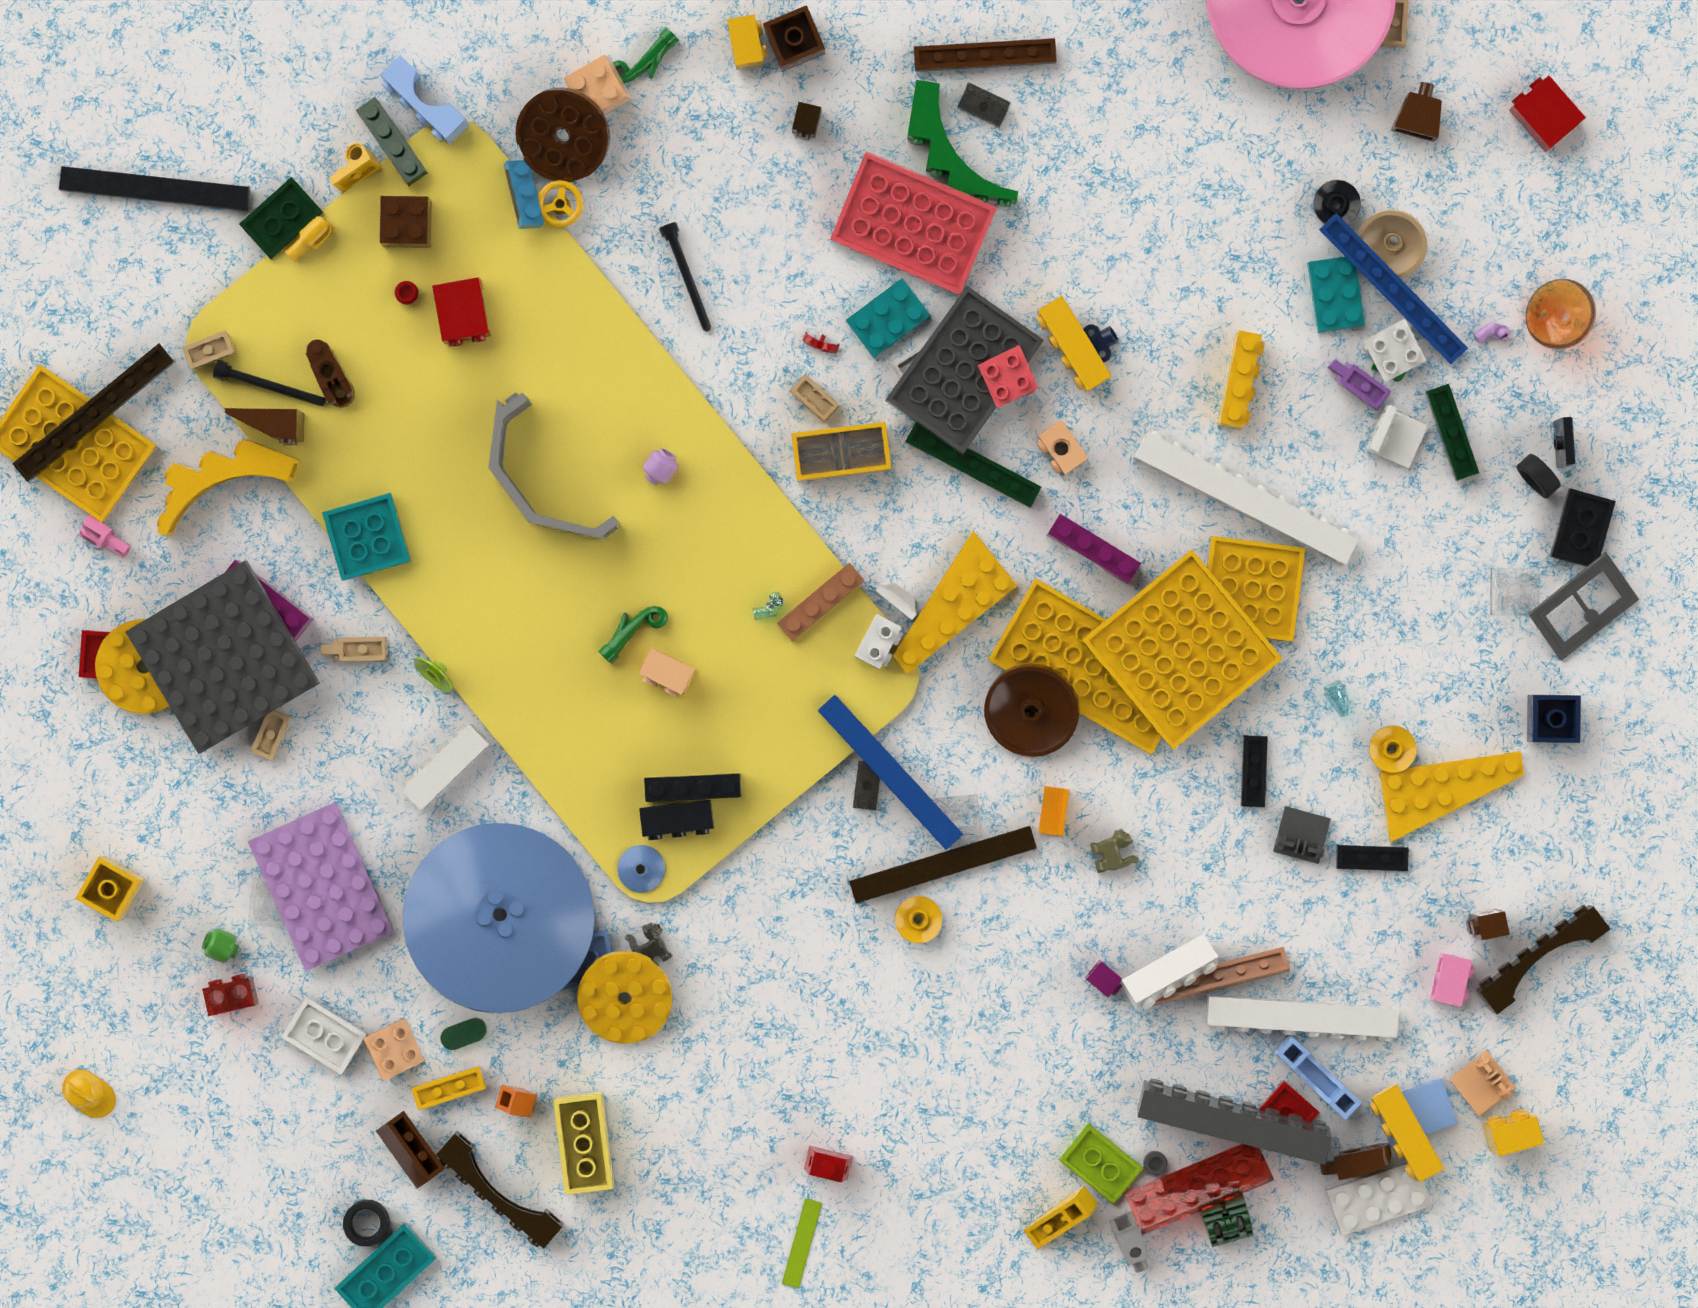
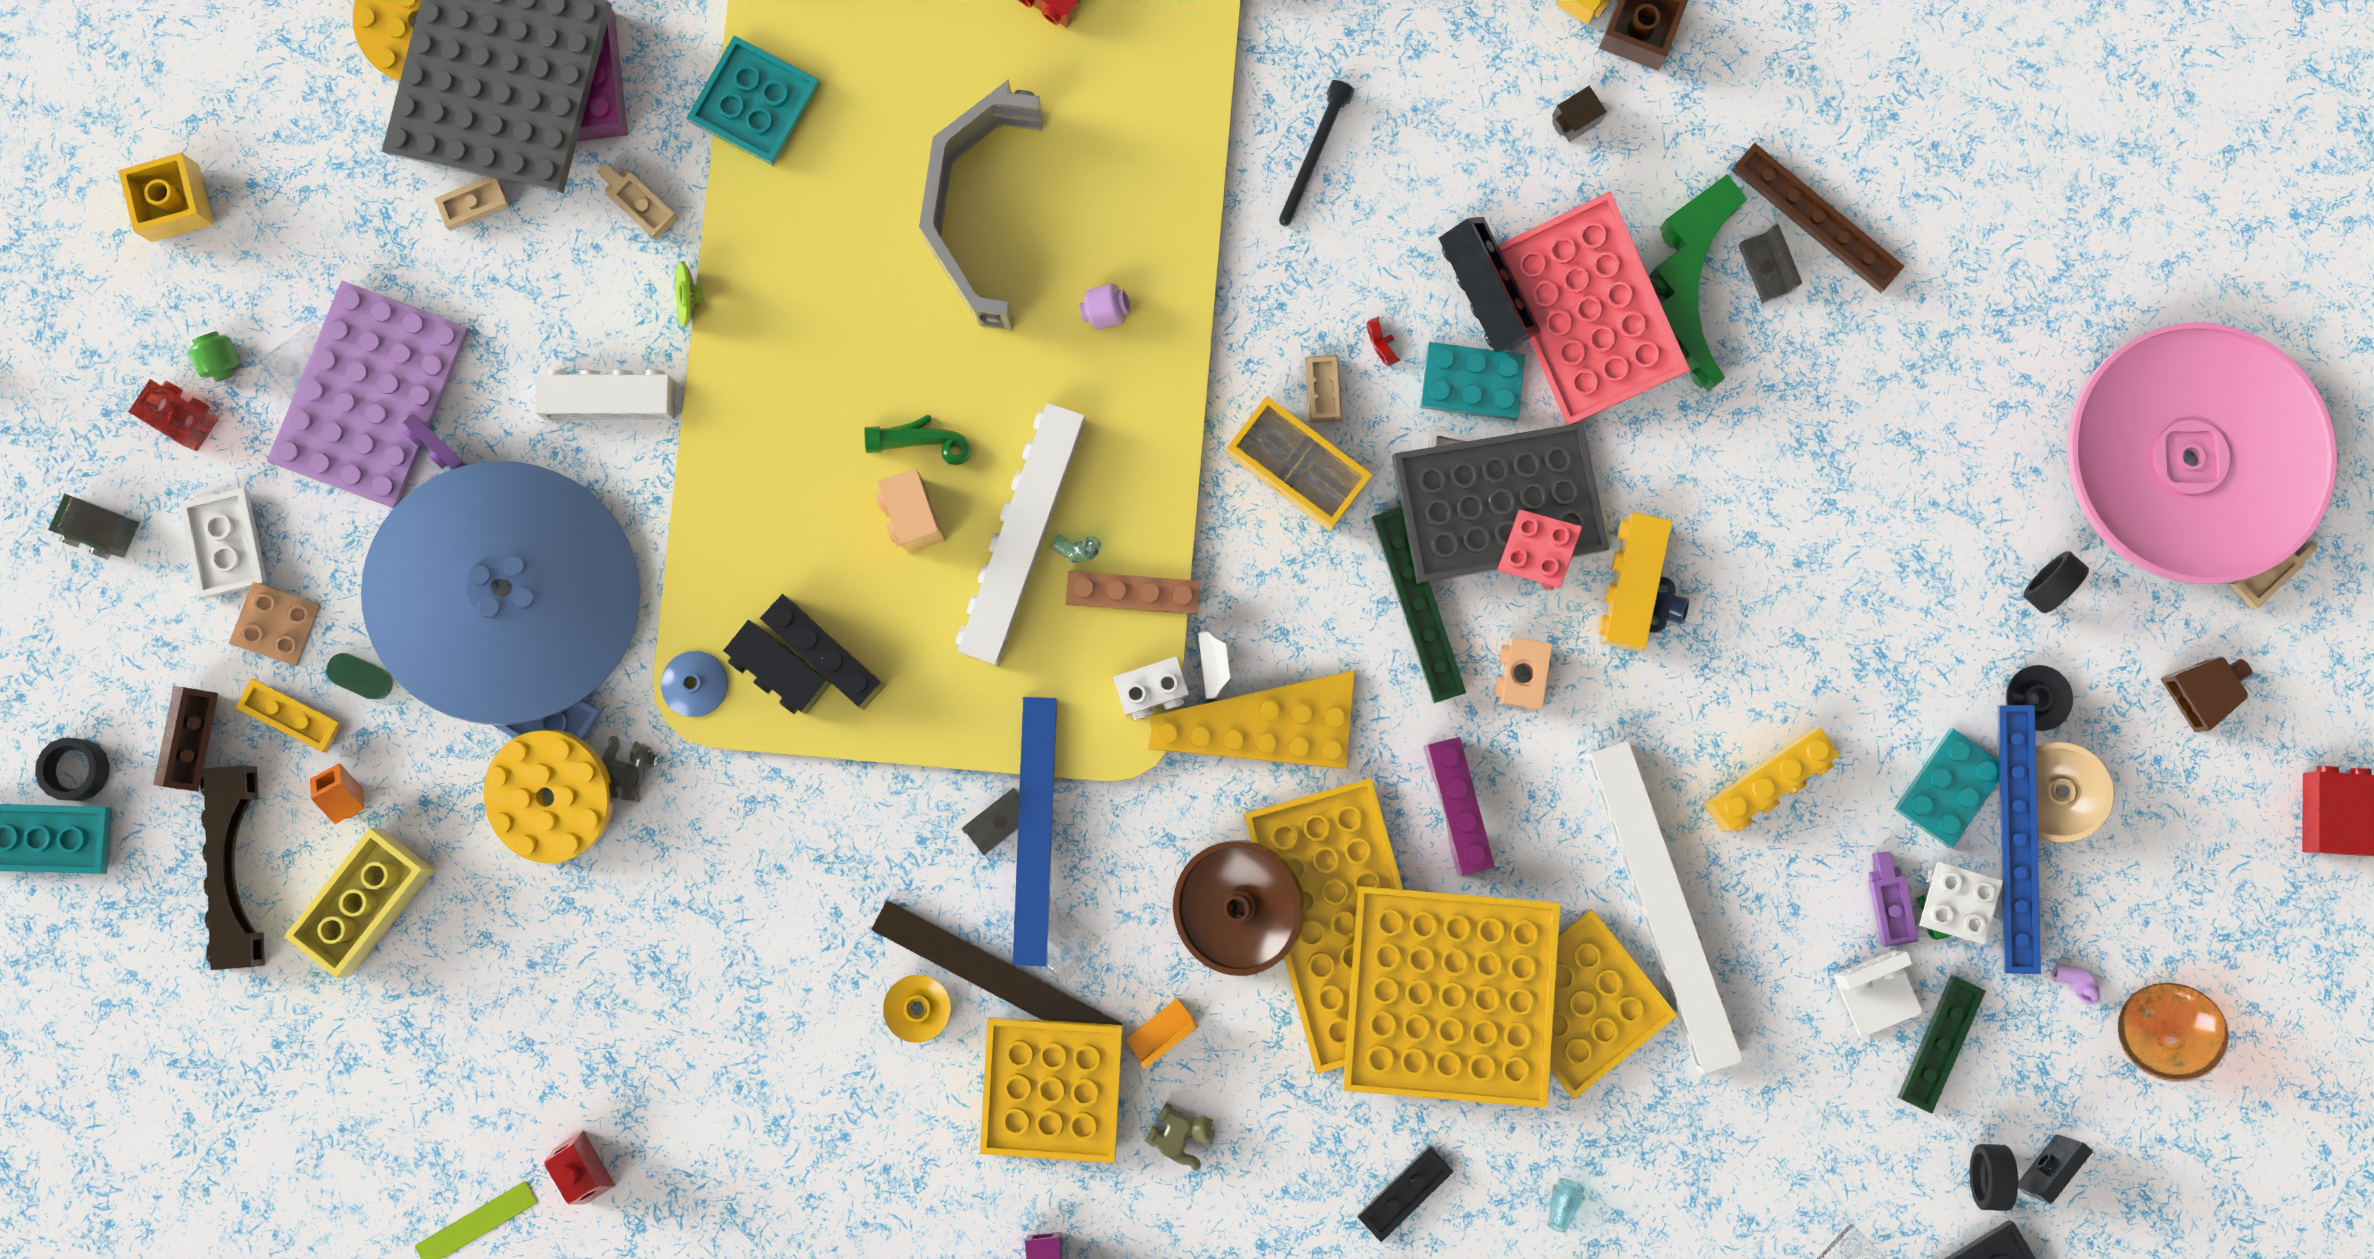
camera: 45 degrees right, 5 degrees down
(248, 1092) = (94, 526): none -> clear smoke brick
(392, 879) = (441, 453): none -> medium lavender hinge
(734, 627) = (1021, 535): none -> white brick
(848, 259) = (1488, 284): none -> black brick
(1026, 892) = (1051, 1089): none -> yellow plate
(1289, 135) = (2056, 582): none -> black tyre

